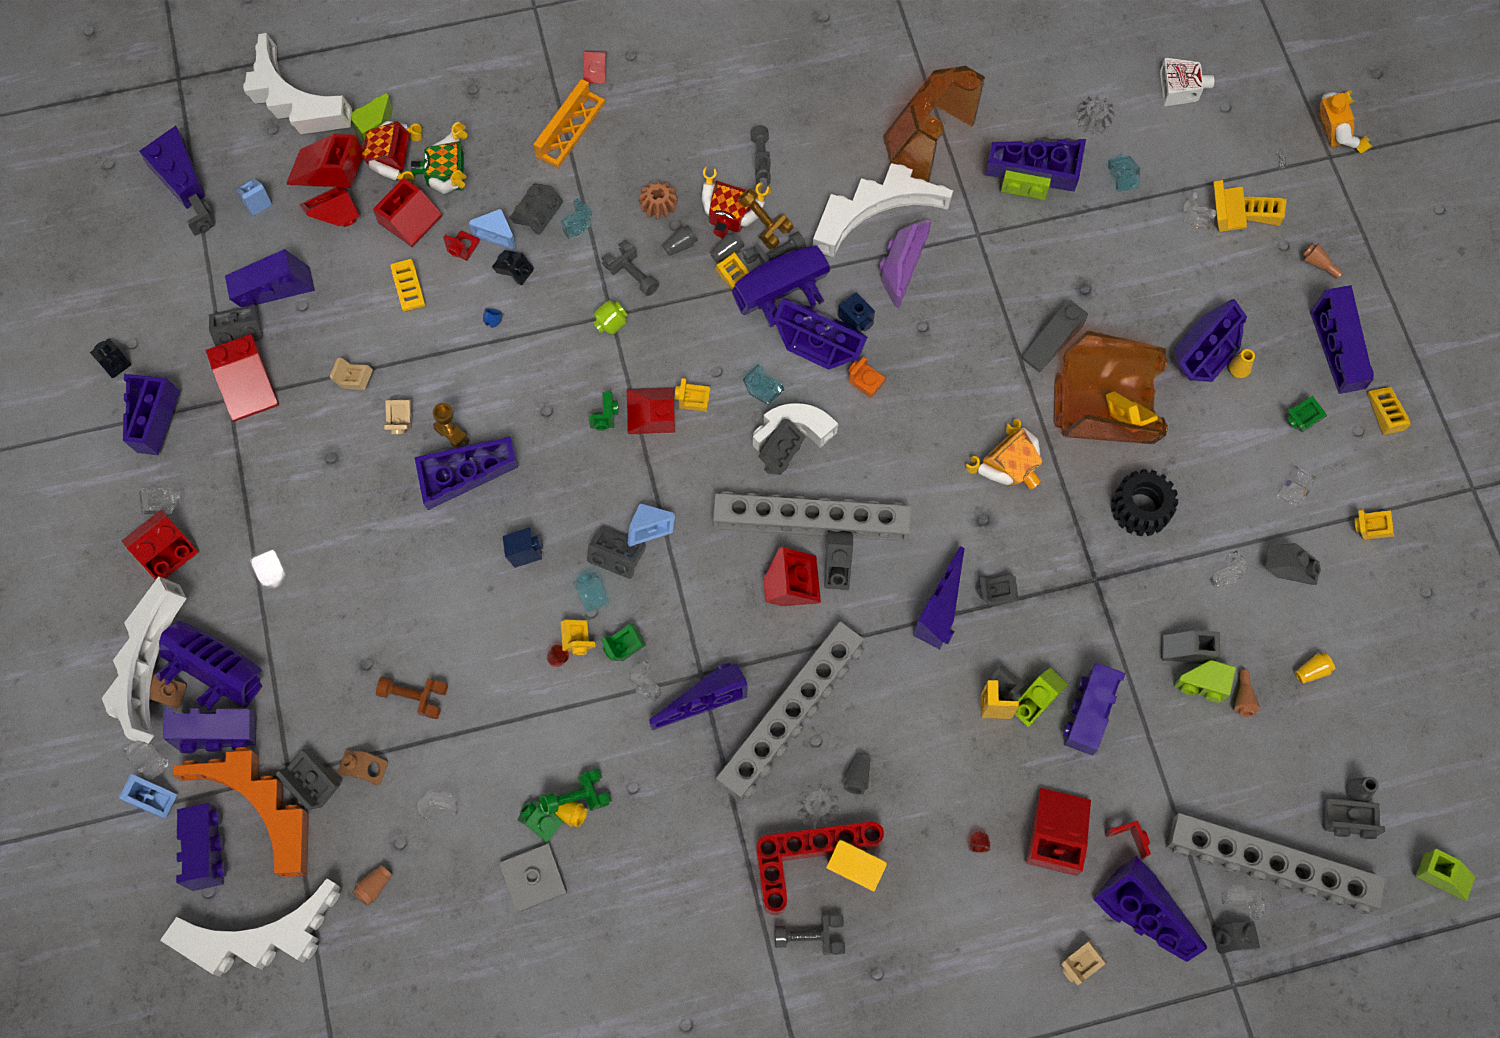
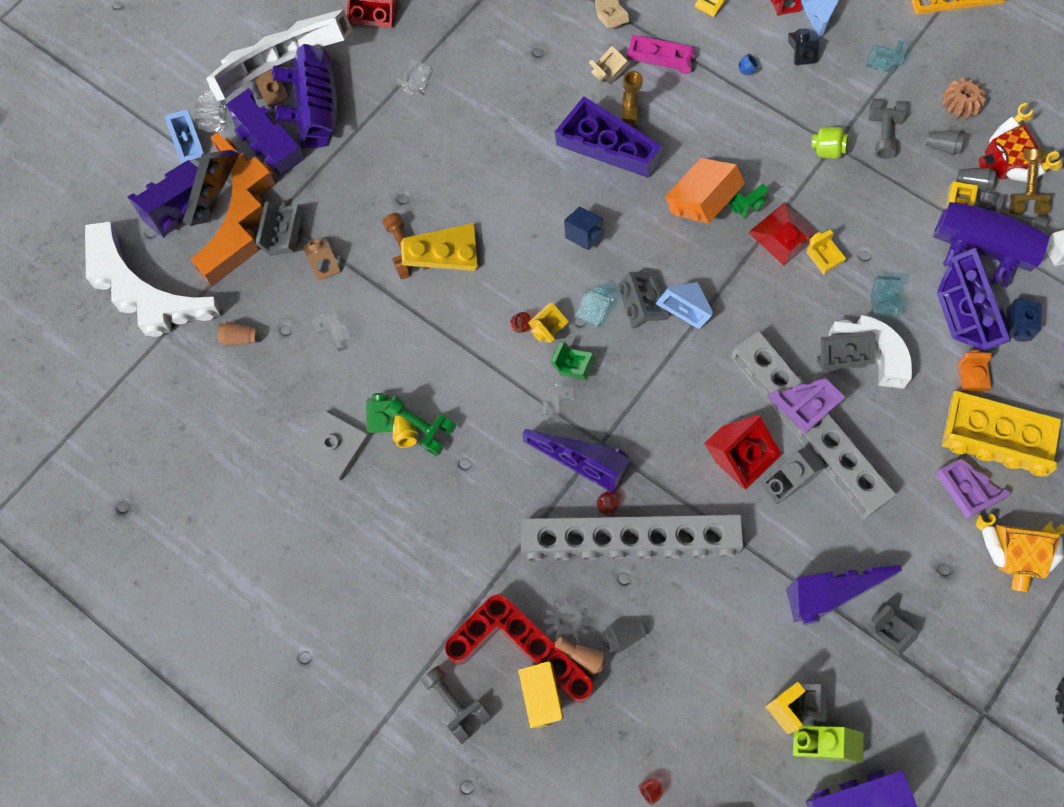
camera: 55 degrees right, 0 degrees up
(221, 809) = (208, 183): none -> black wing
(422, 370) = (661, 53): none -> dark pink plate
(444, 666) = (442, 249): none -> yellow wing
(537, 207) = (868, 24): dark grey bracket -> none
(571, 437) = (704, 190): none -> orange brick
(747, 710) = (601, 503): none -> clear red hinge
(799, 506) = (808, 403): none -> medium lavender wing
(856, 812) = (588, 659): none -> nougat cone
(922, 400) = (1001, 434): none -> yellow bracket
(943, 454) = (970, 488): none -> medium lavender wing

